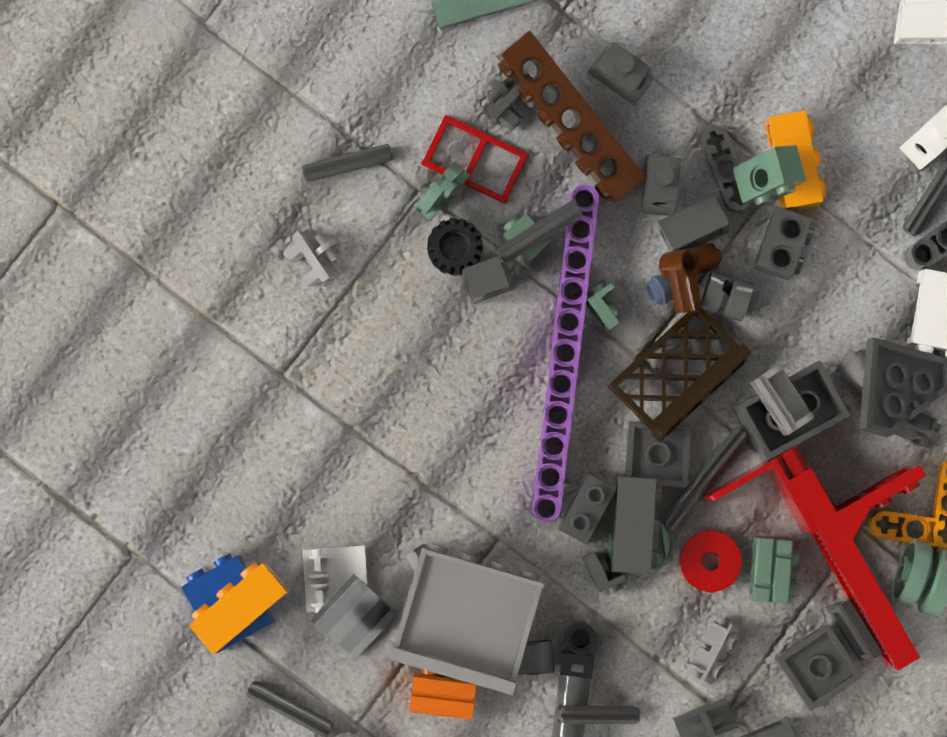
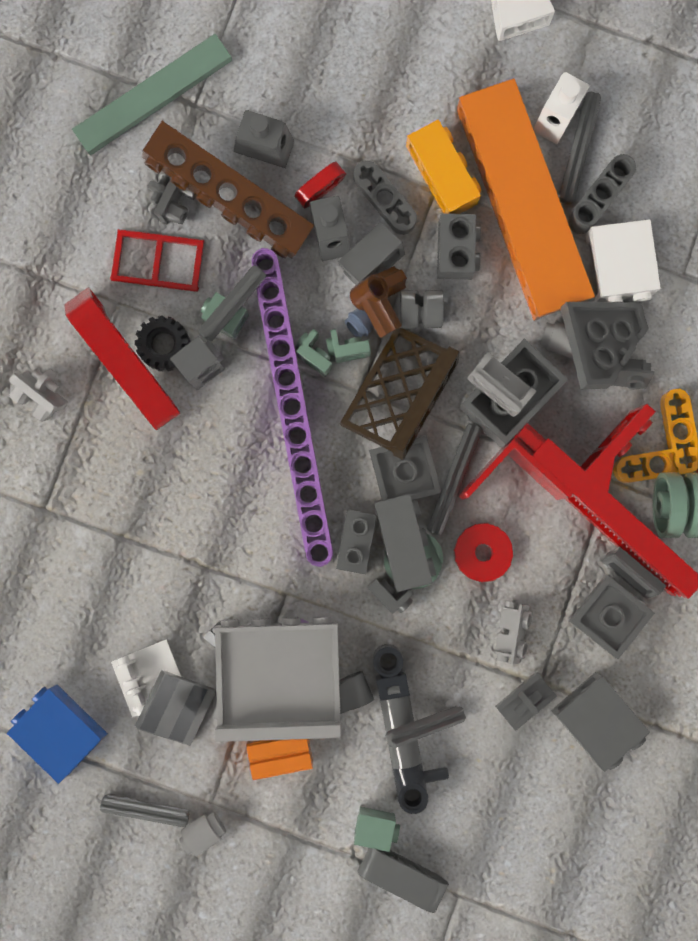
camera: 15 degrees left, 0 degrees up
(237, 606) = (61, 737): light orange brick -> none
(347, 163) = (42, 299): dark grey axle -> none
(409, 248) = (111, 348): none -> red beam
(440, 192) = (131, 299): sand green plate -> none
(644, 314) = (351, 350): none -> sand green bracket
(664, 136) = (320, 184): none -> red beam
(769, 175) = (424, 185): sand green brick -> none
(772, 570) = (542, 543): sand green brick -> none
(866, 217) = (524, 198): none -> orange tile

